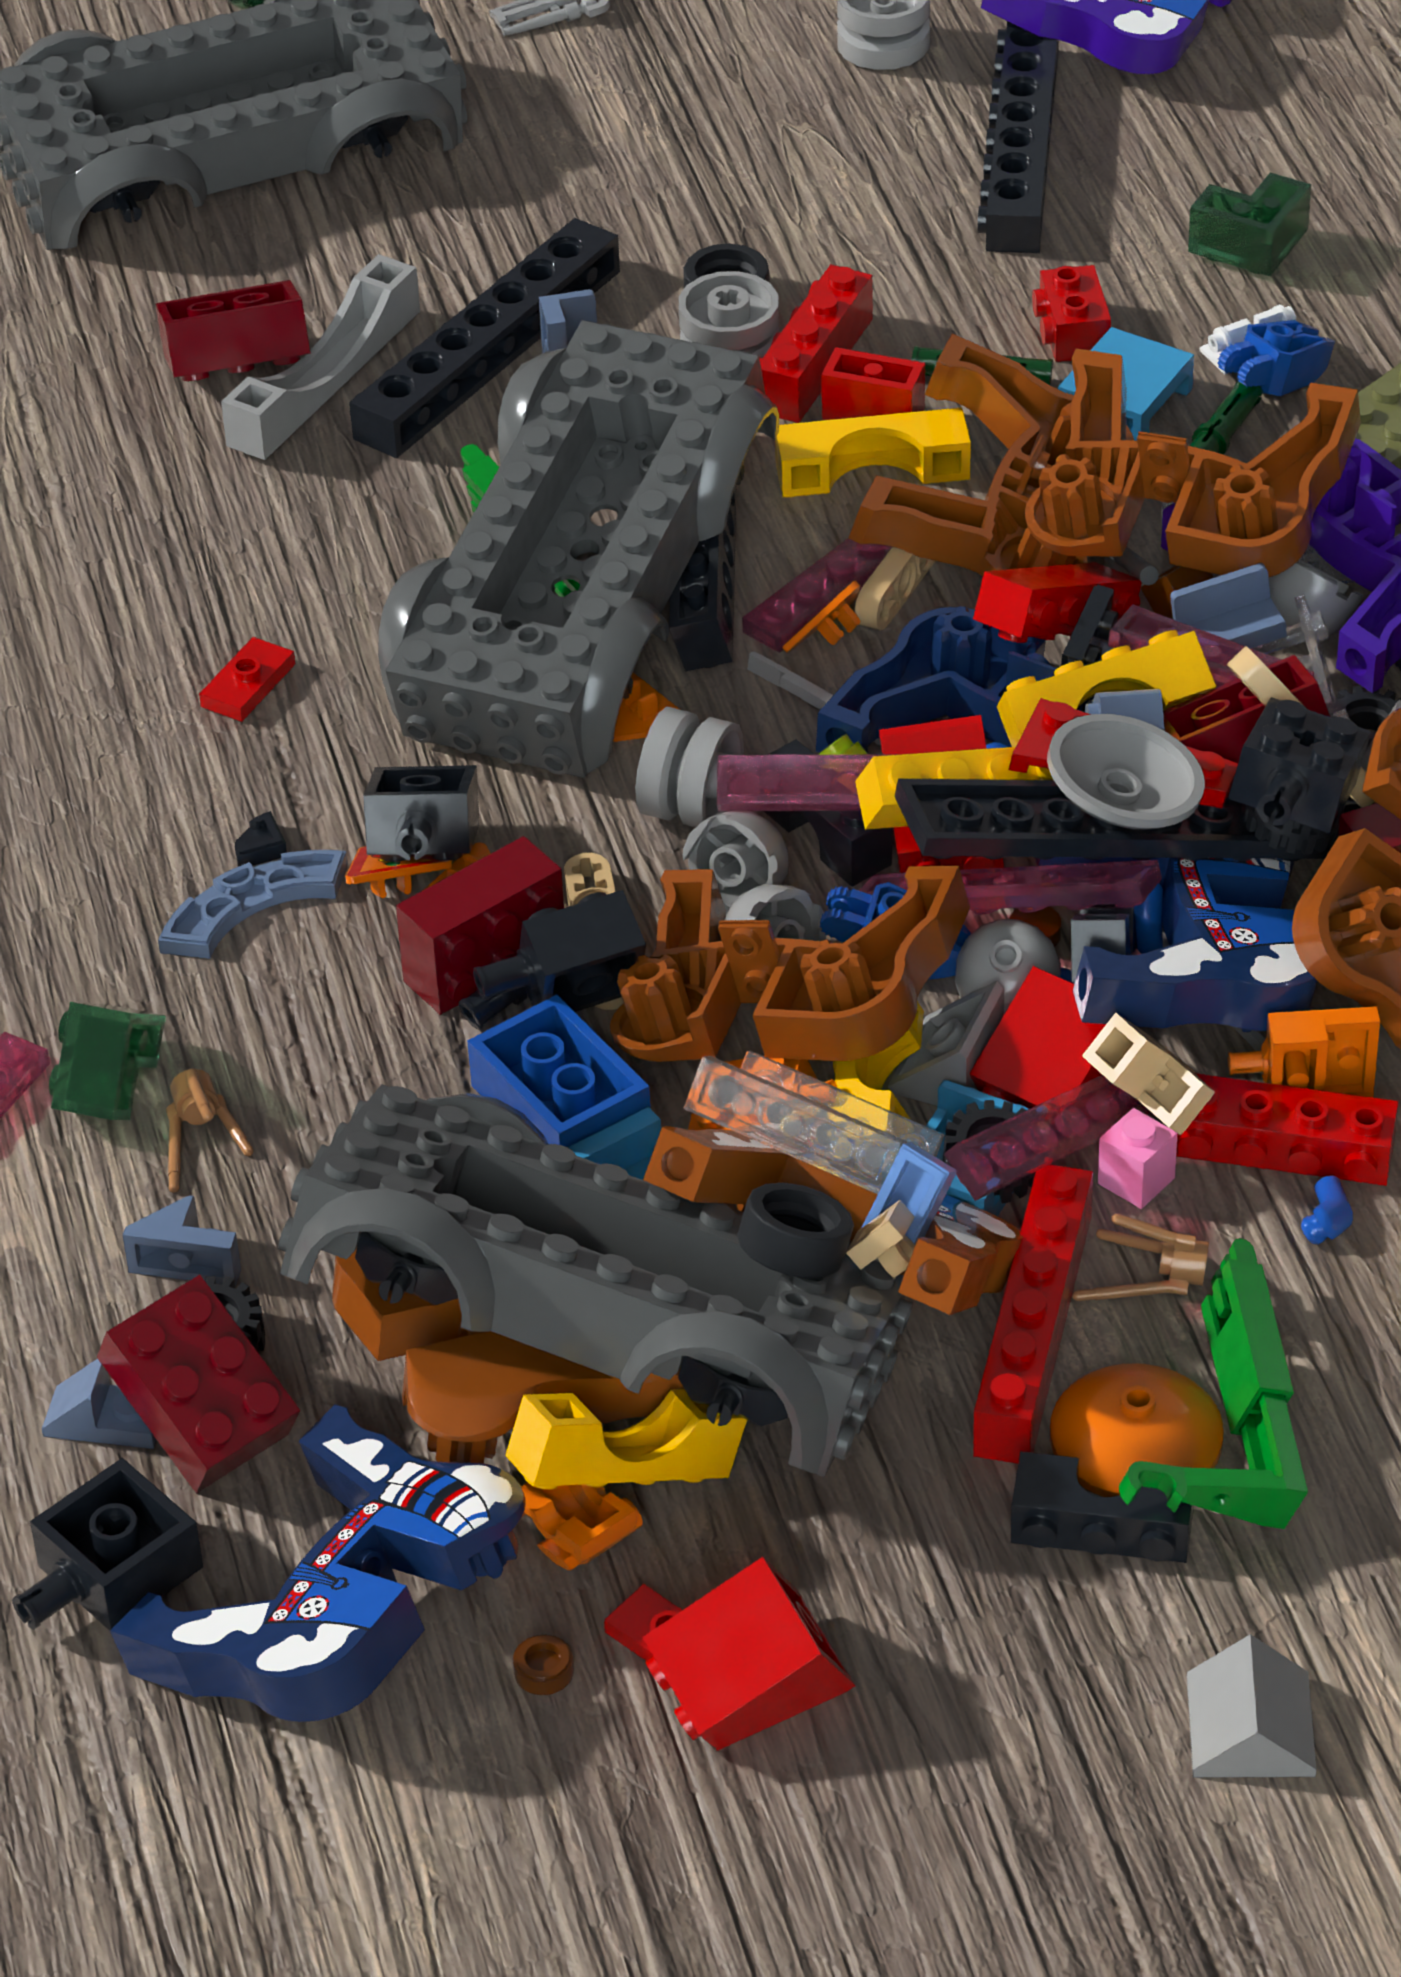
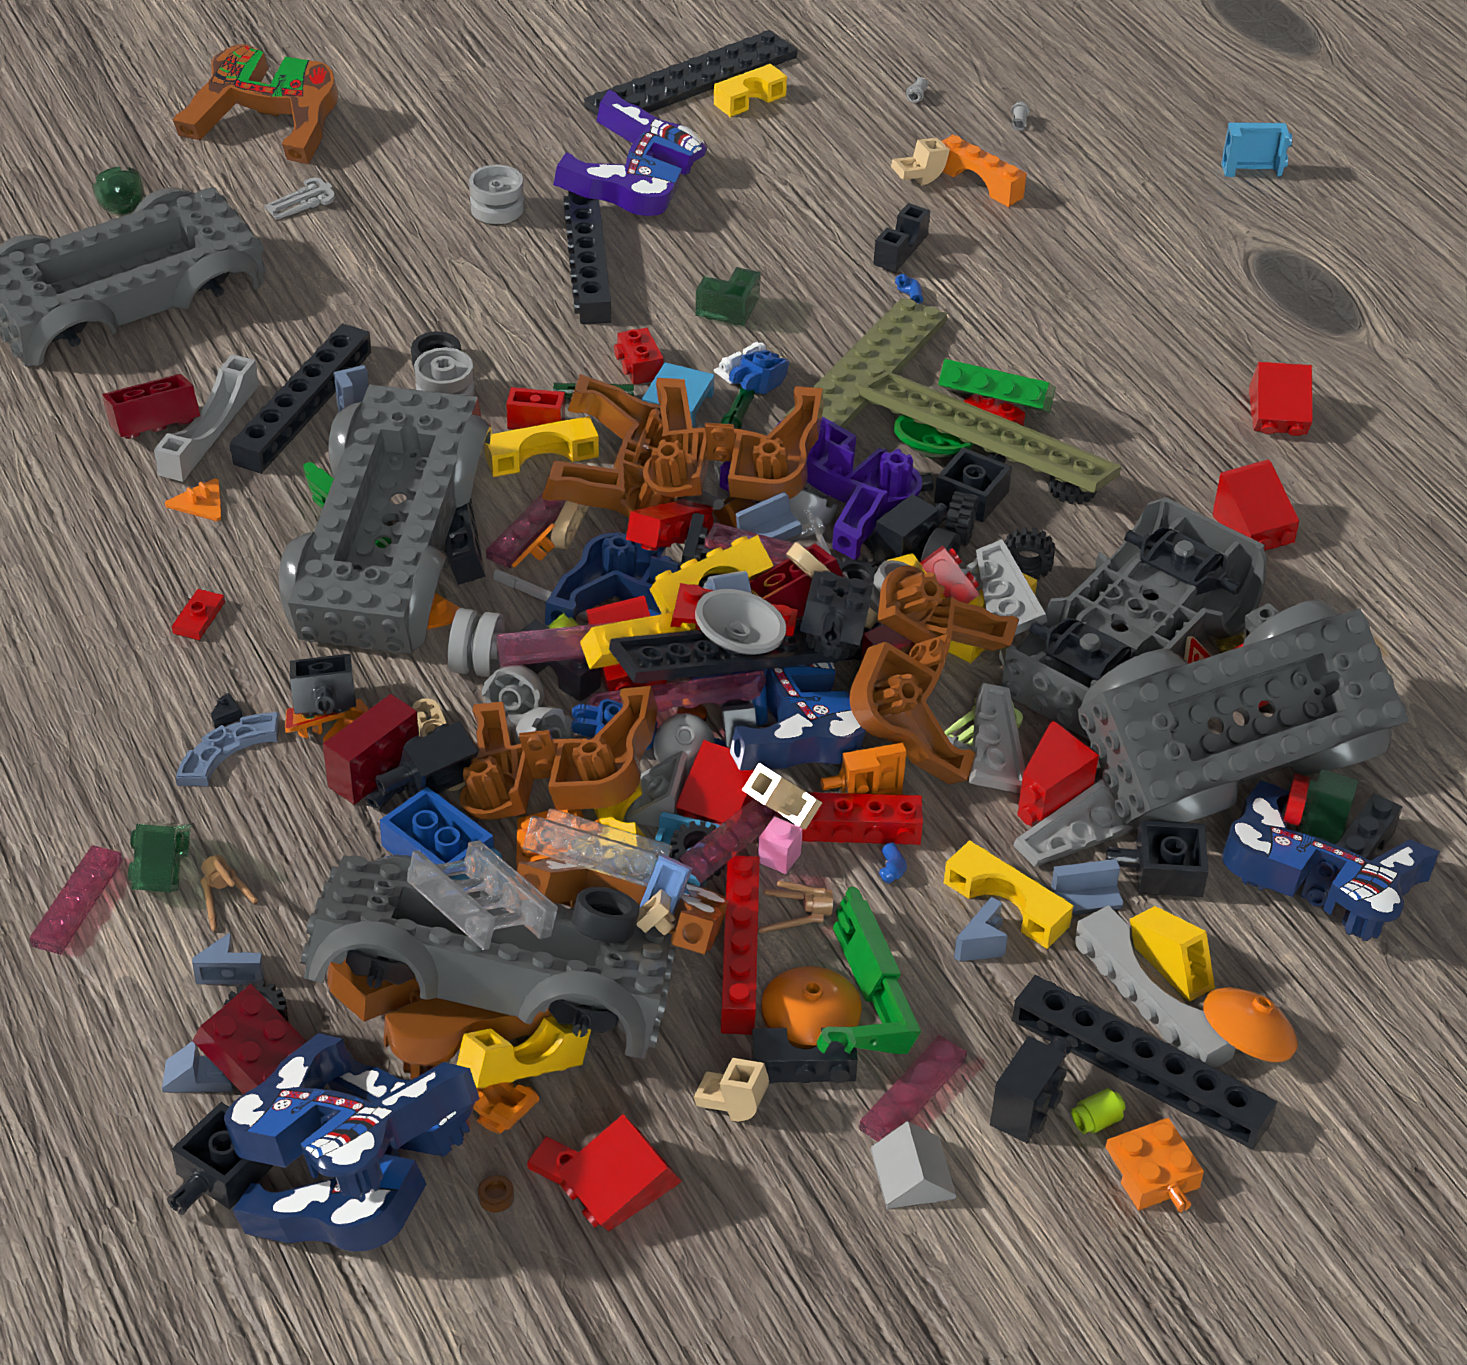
camera: 15 degrees left, 0 degrees up
(286, 495) = (199, 501): none -> orange piece
(286, 1522) = (335, 1129): none -> dark blue animal
(609, 1139) = (487, 873): none -> clear fence
(829, 317) = (496, 378): red brick -> none
(971, 1548) = (736, 1090): none -> tan brick
(1283, 1585) = (913, 1088): none -> clear pink plate

